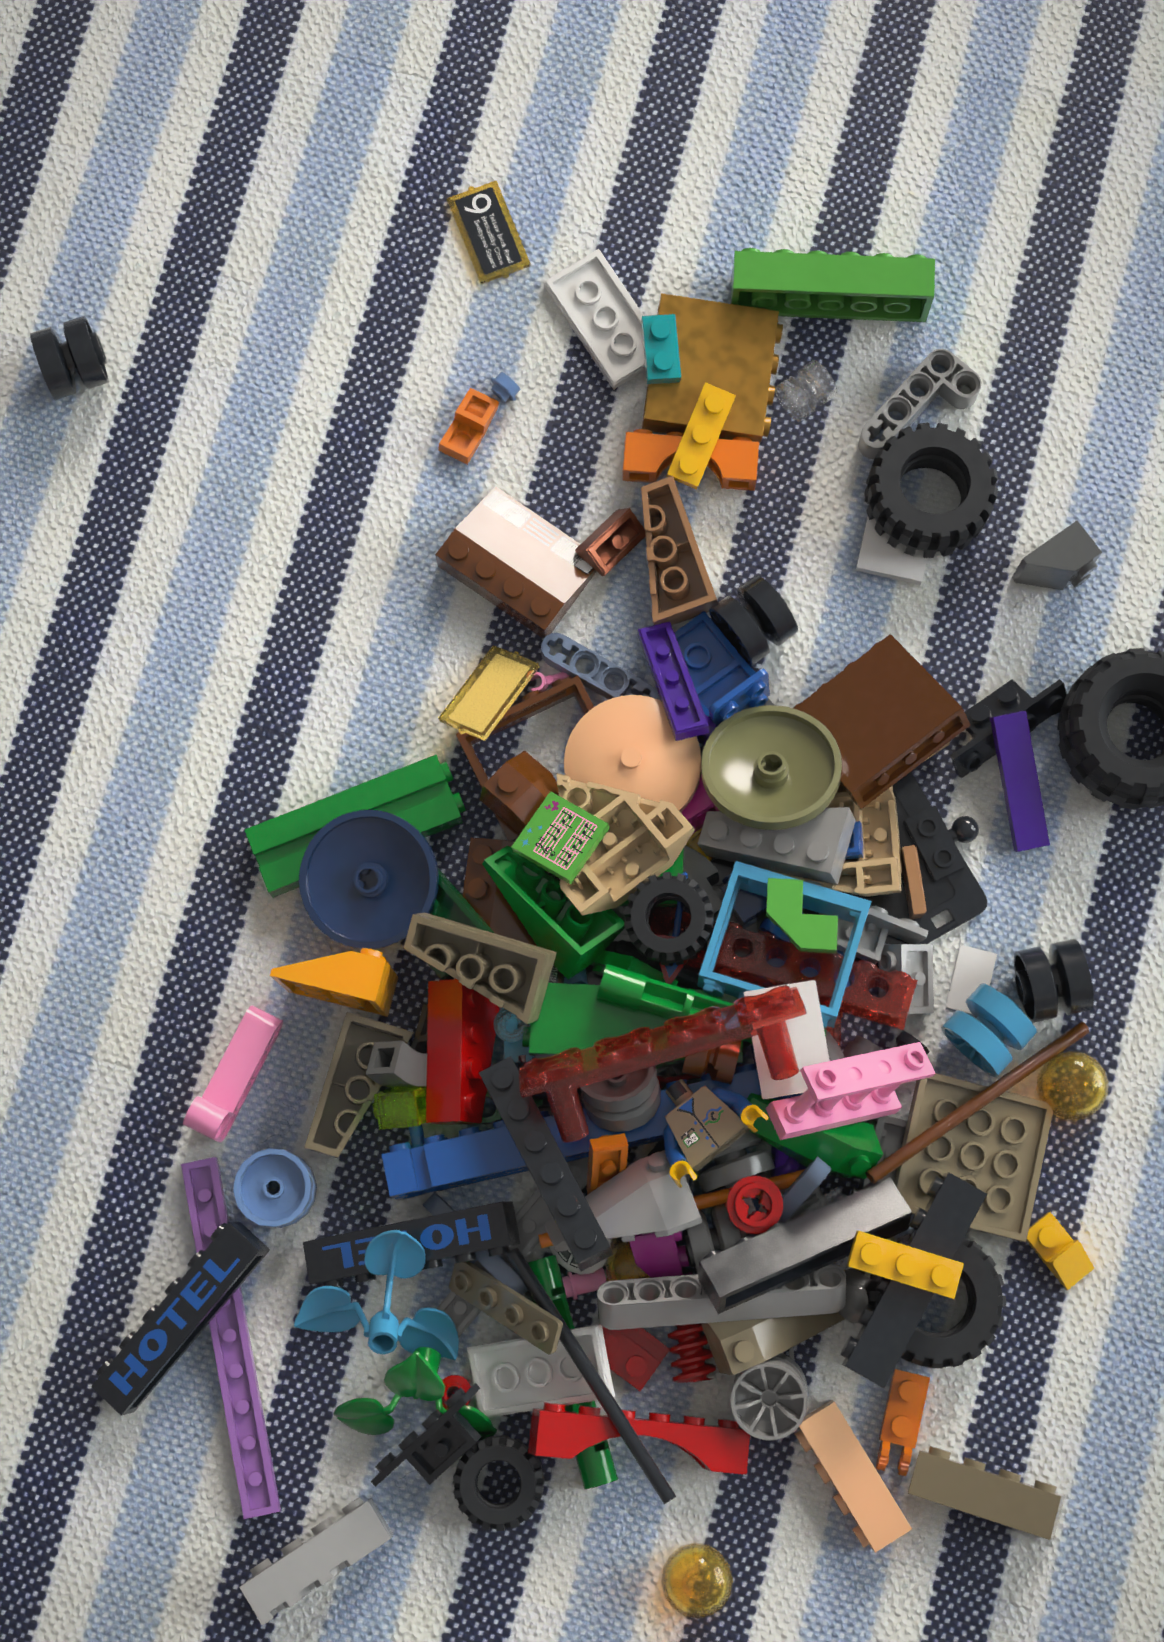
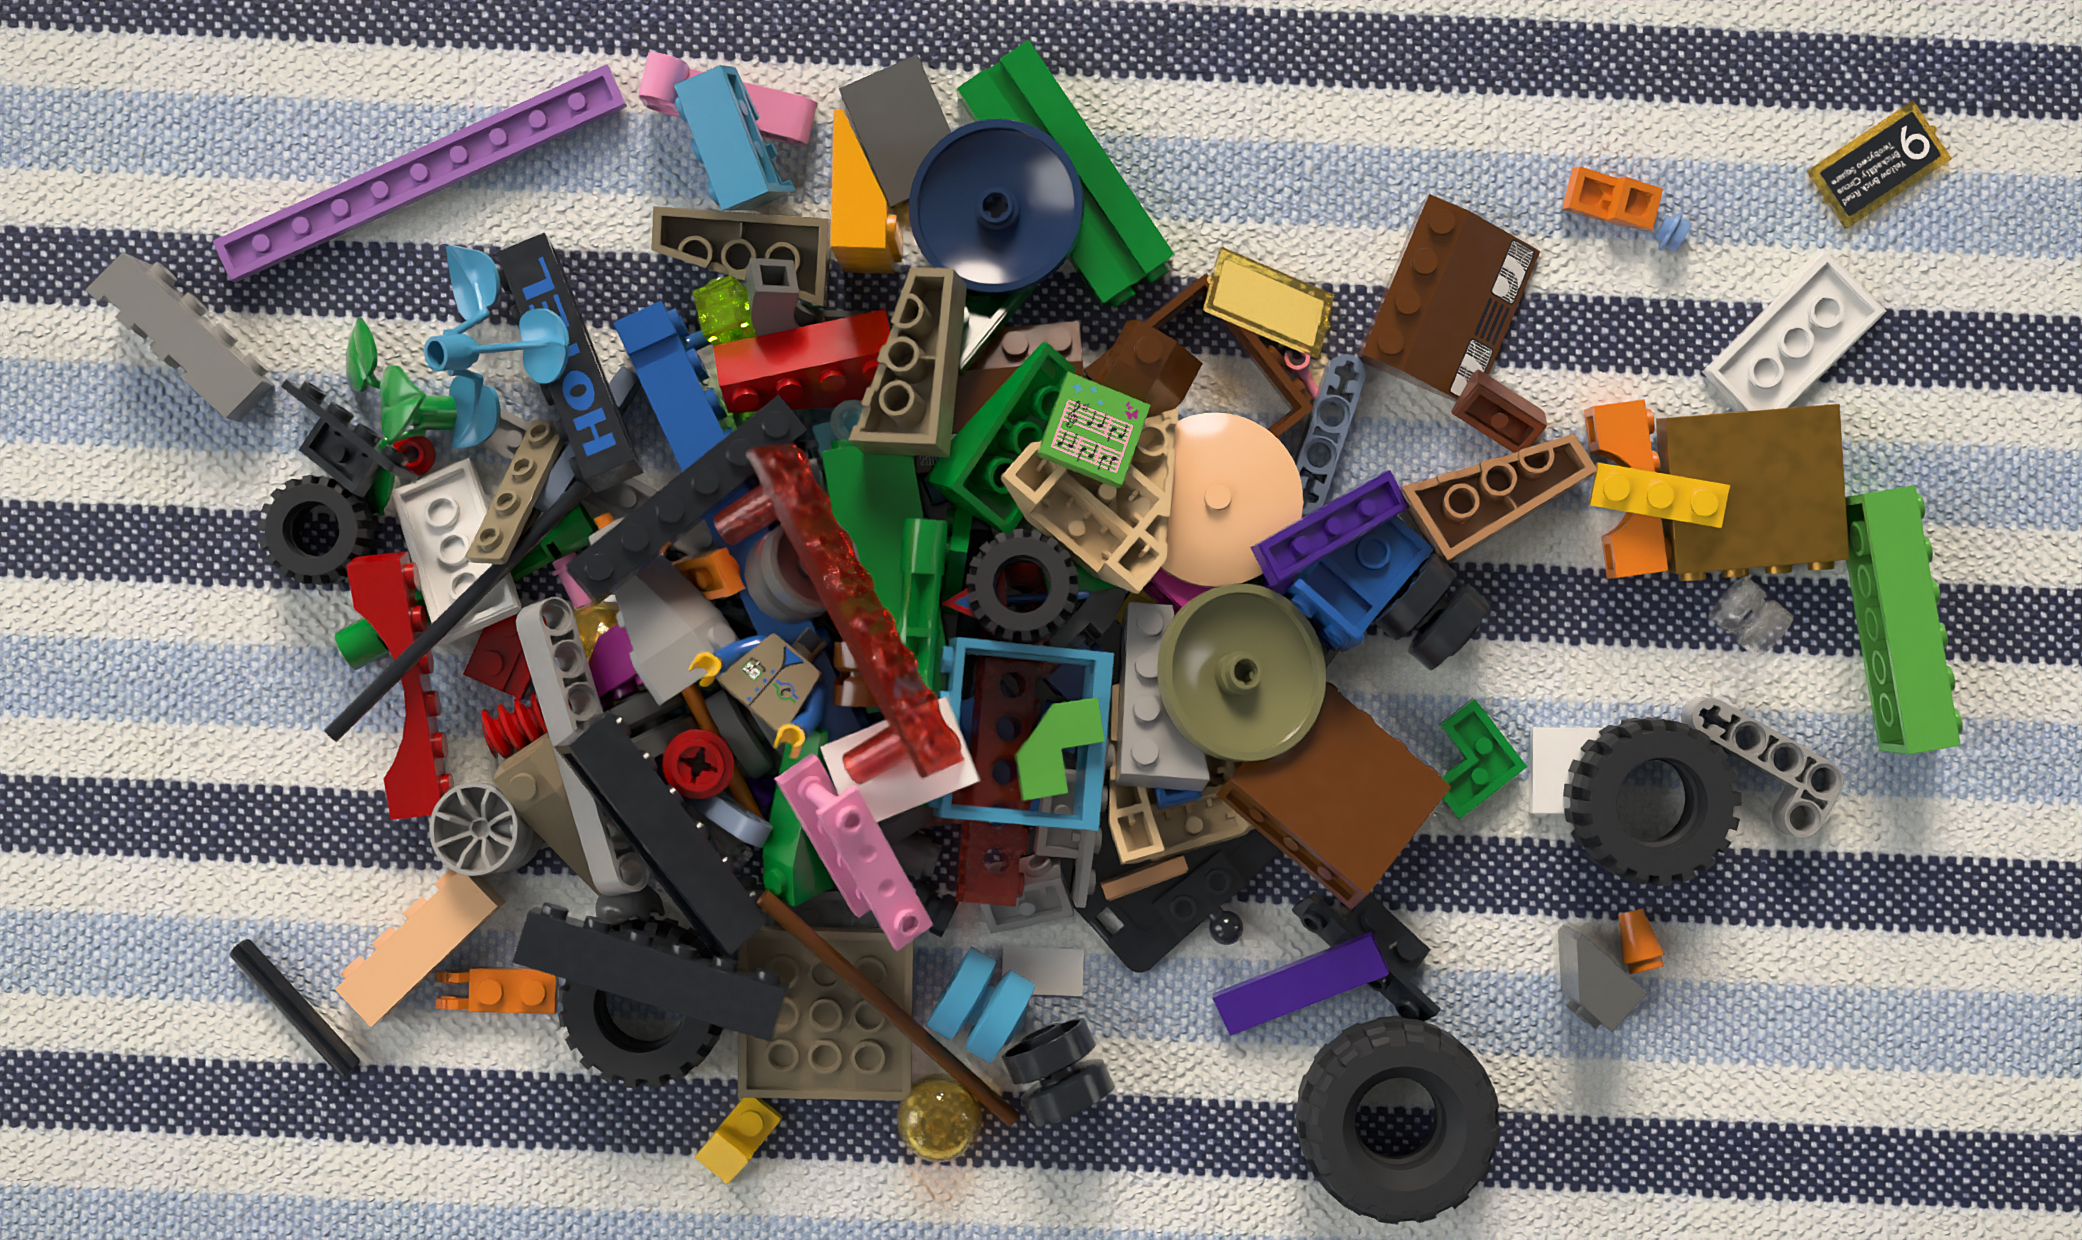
camera: 75 degrees right, 10 degrees up
(180, 1317) = (424, 107): black brick -> none
(266, 1075) = (729, 140): none -> dark azure wedge
(278, 941) = (896, 123): none -> dark grey tile
(295, 1194) = (586, 162): medium blue wheel -> none
(661, 349) = (1763, 419): teal plate -> none
(696, 1580) = (262, 787): clear yellow cylinder -> none
(871, 605) = (1487, 759): none -> green plate
(883, 1594) = (294, 1007): none -> black axle
(905, 1264) = (661, 959): yellow plate -> none
(987, 1494) = (431, 1107): dark tan wedge -> none
(1037, 523) = (1639, 943): none -> orange cone

